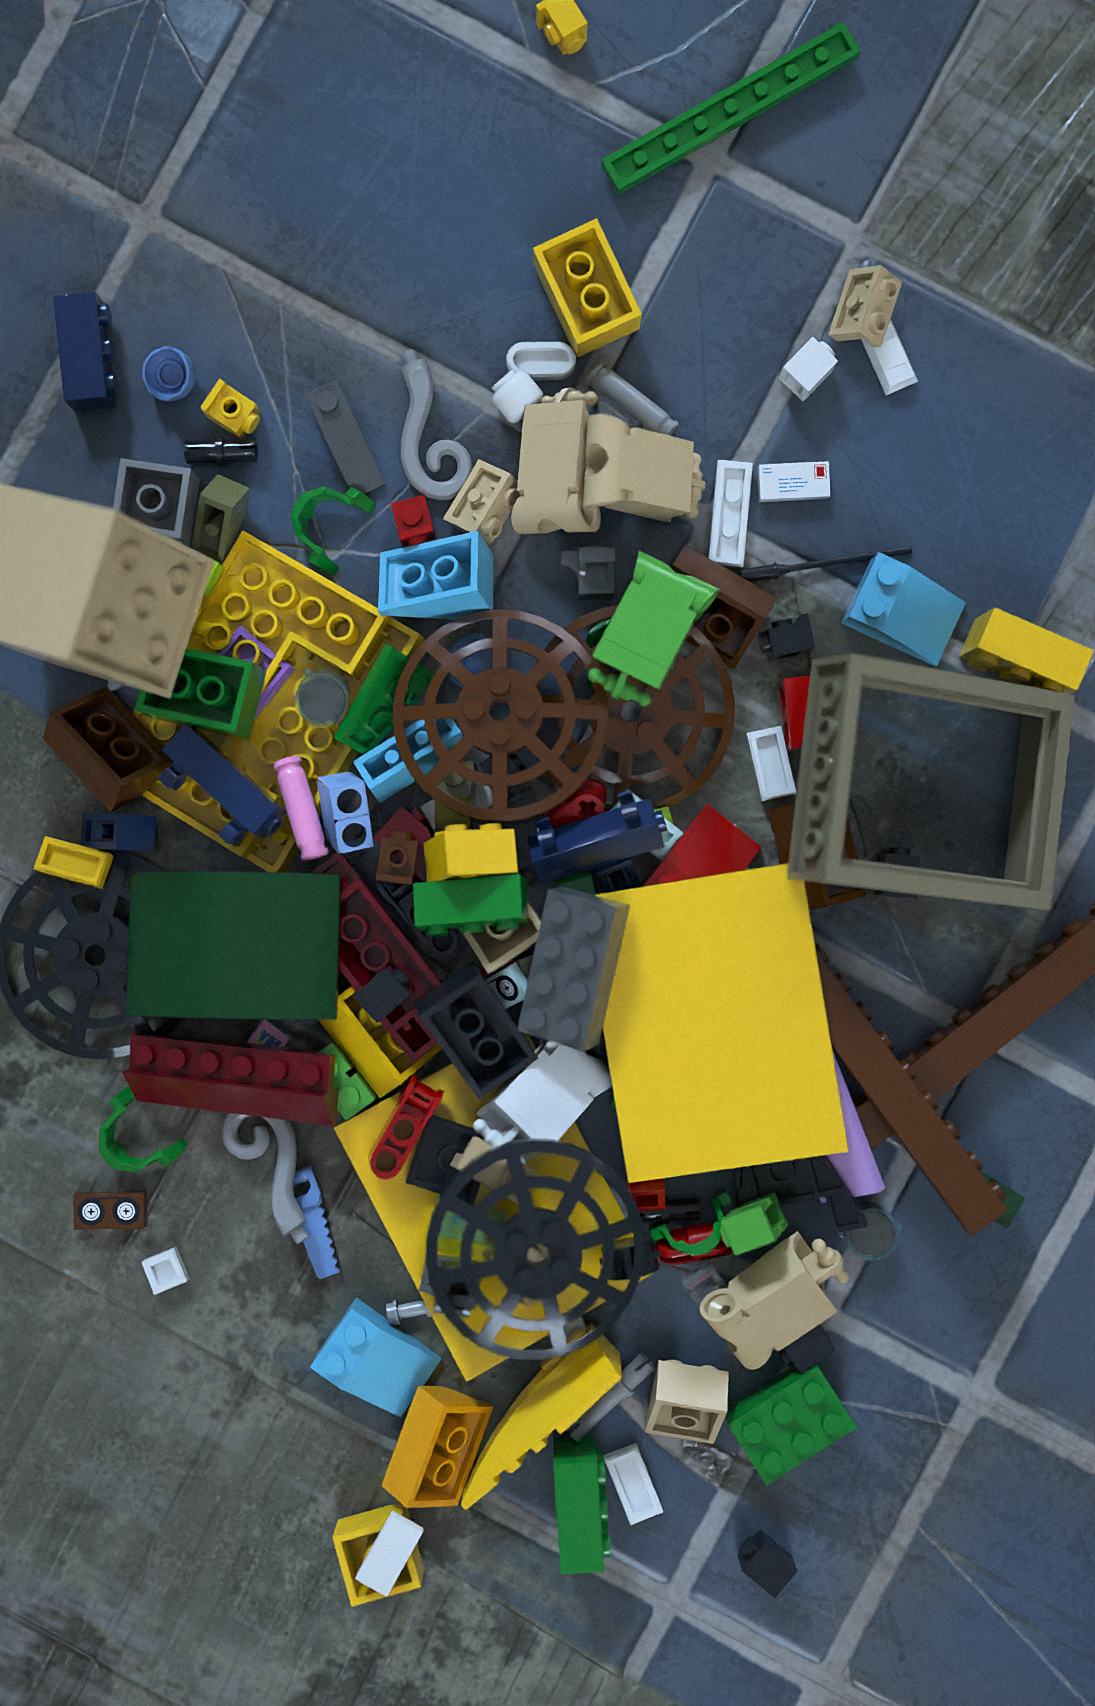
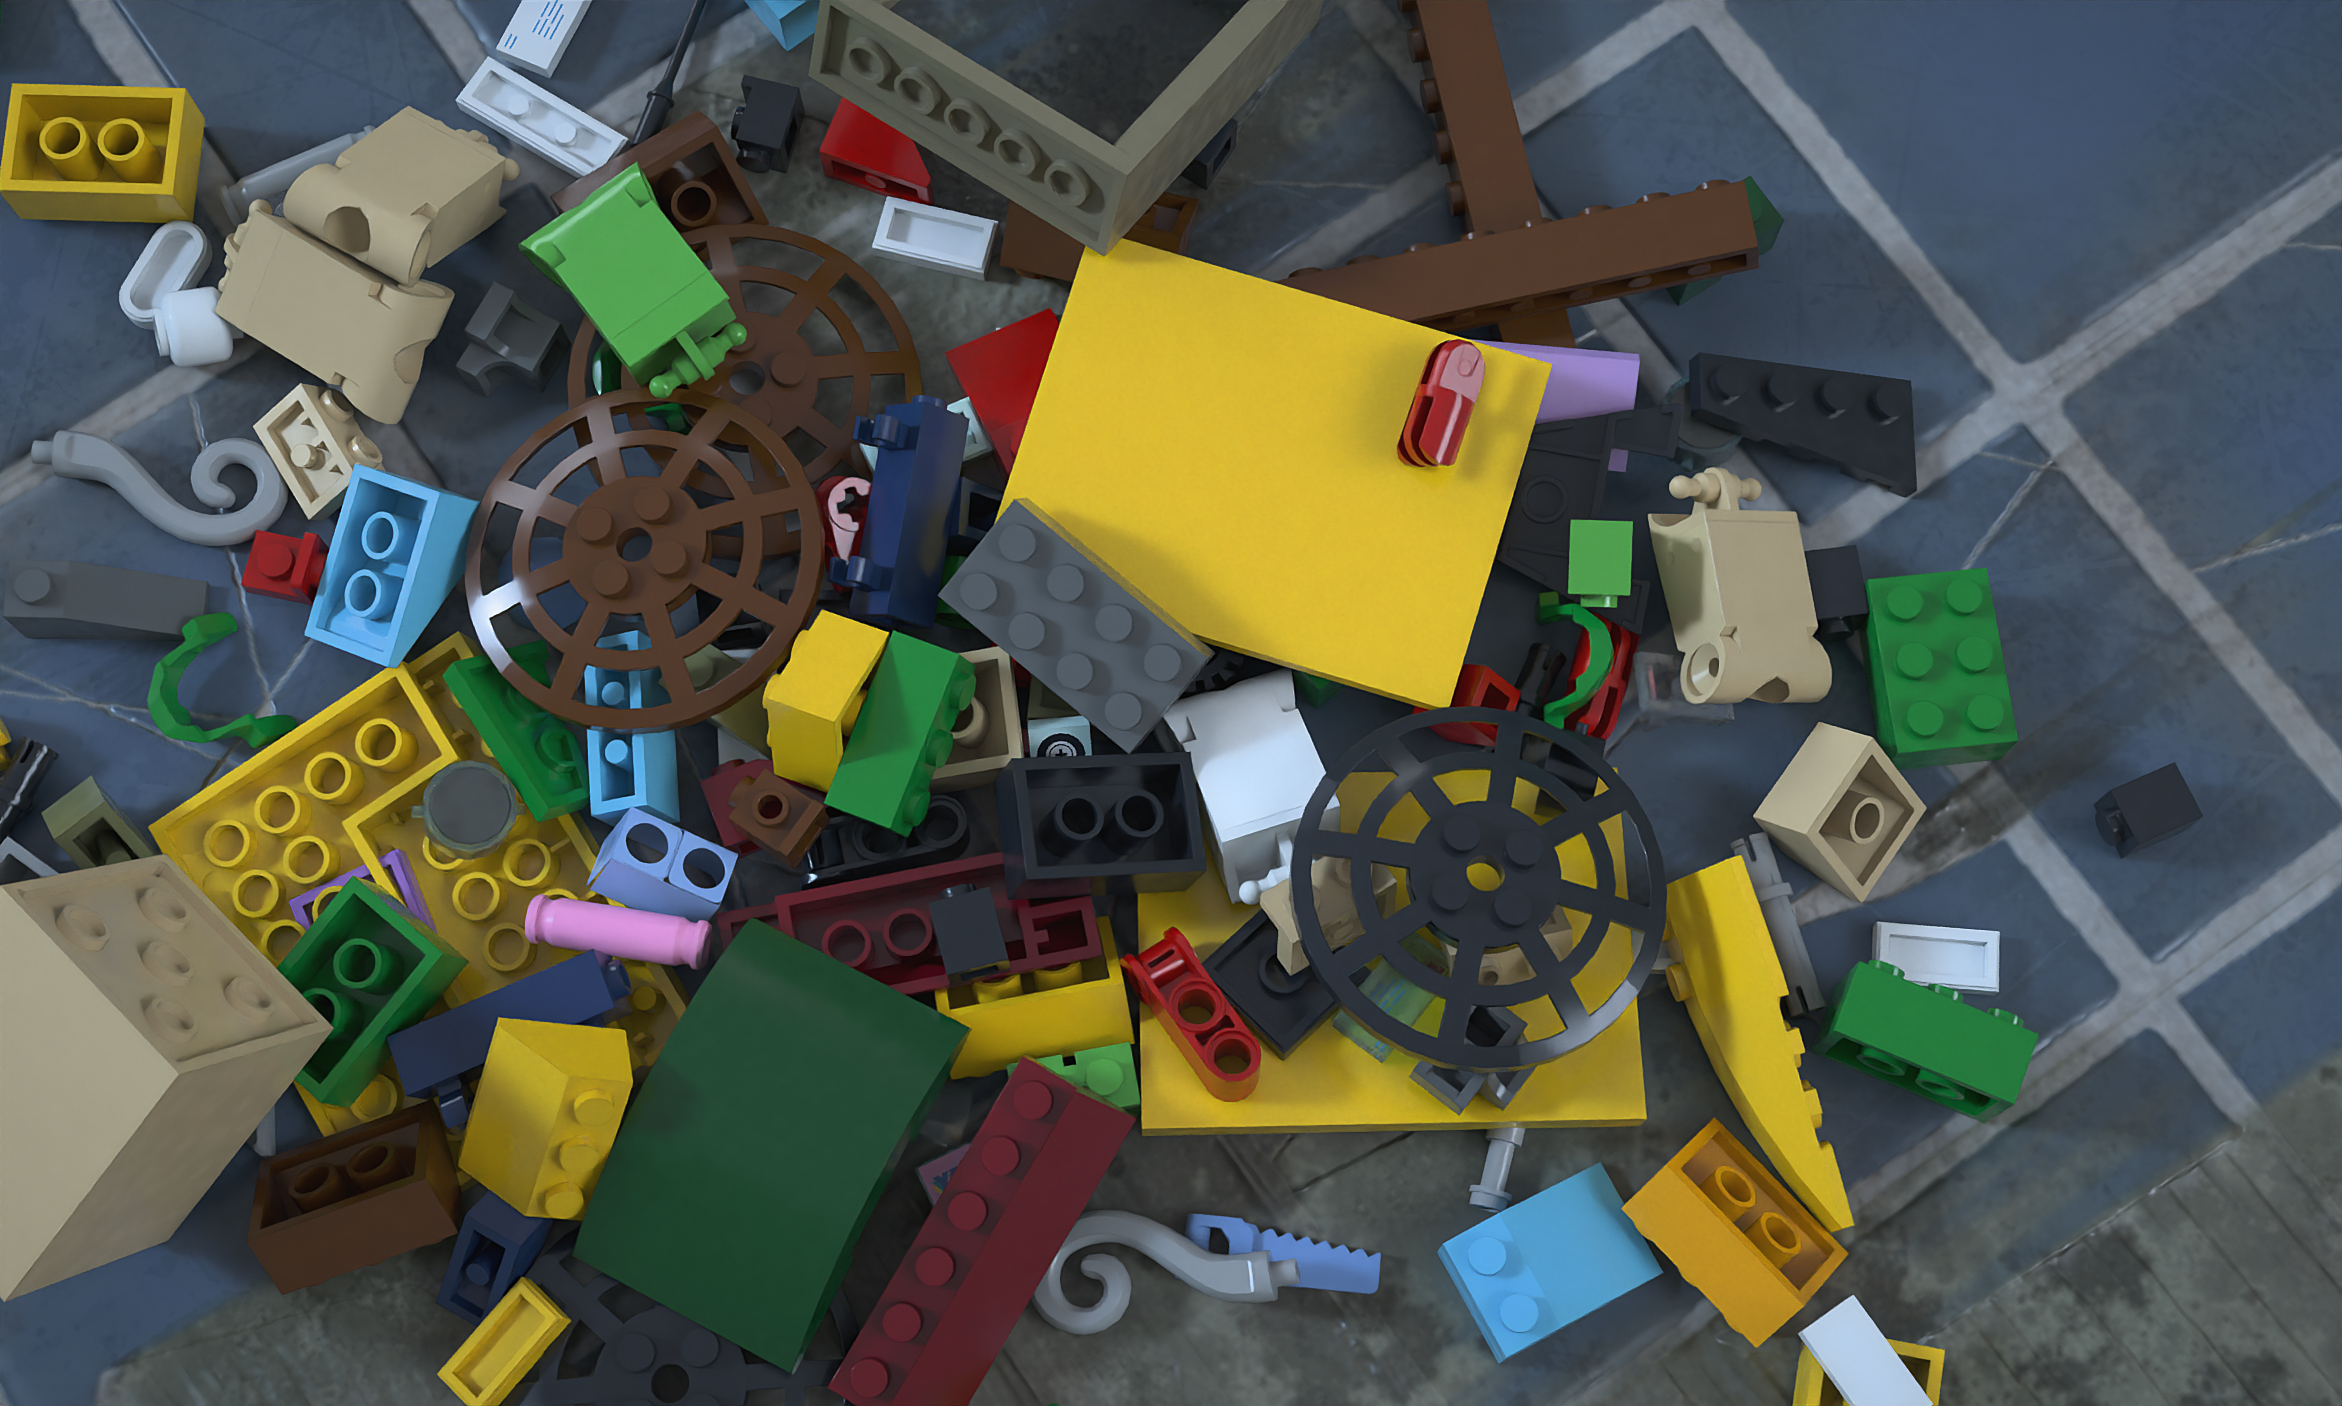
camera: 65 degrees left, 15 degrees down
(184, 830) = (547, 1114): none -> yellow slope
(791, 1106) = (1442, 405): none -> red arm
(904, 1295) = (1815, 412): none -> black wing

